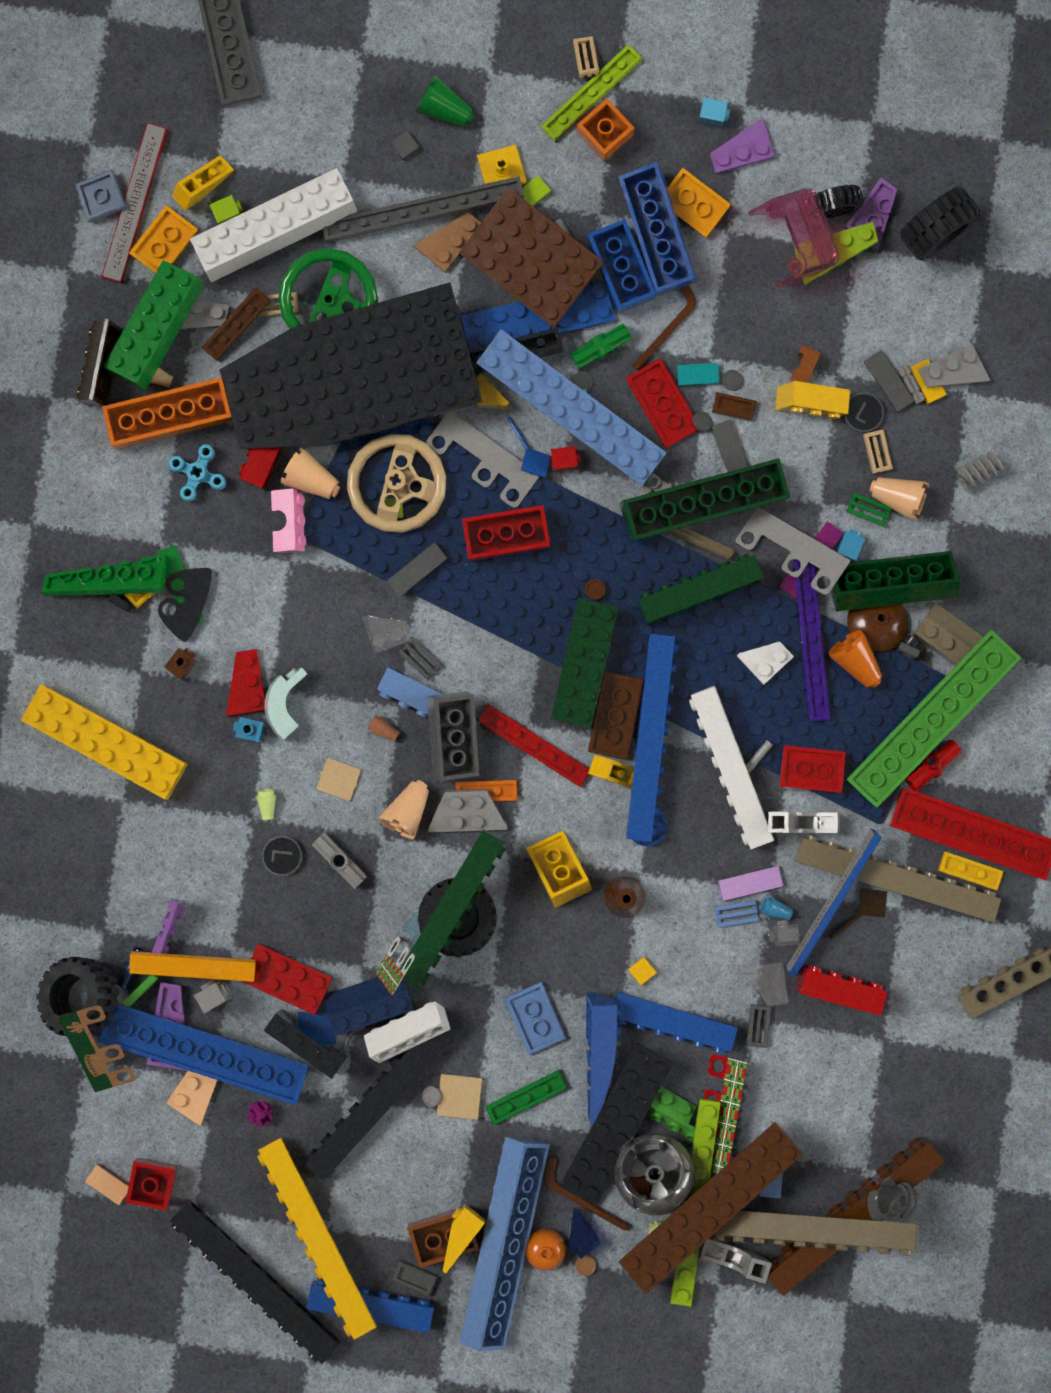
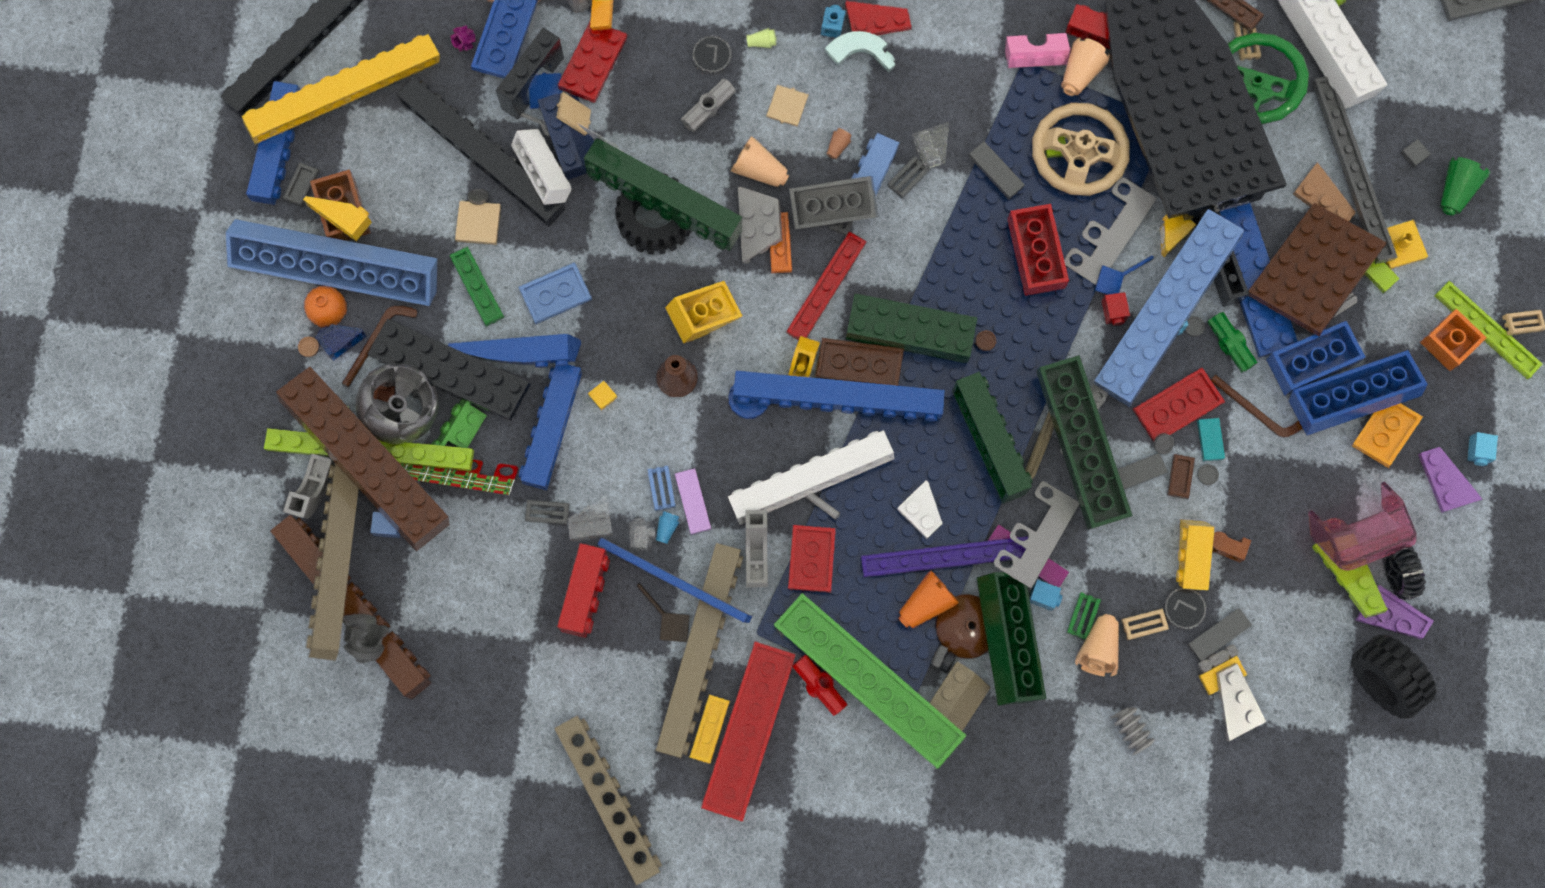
camera: 85 degrees right, 10 degrees down
(348, 998) = (573, 112): none -> tan piece

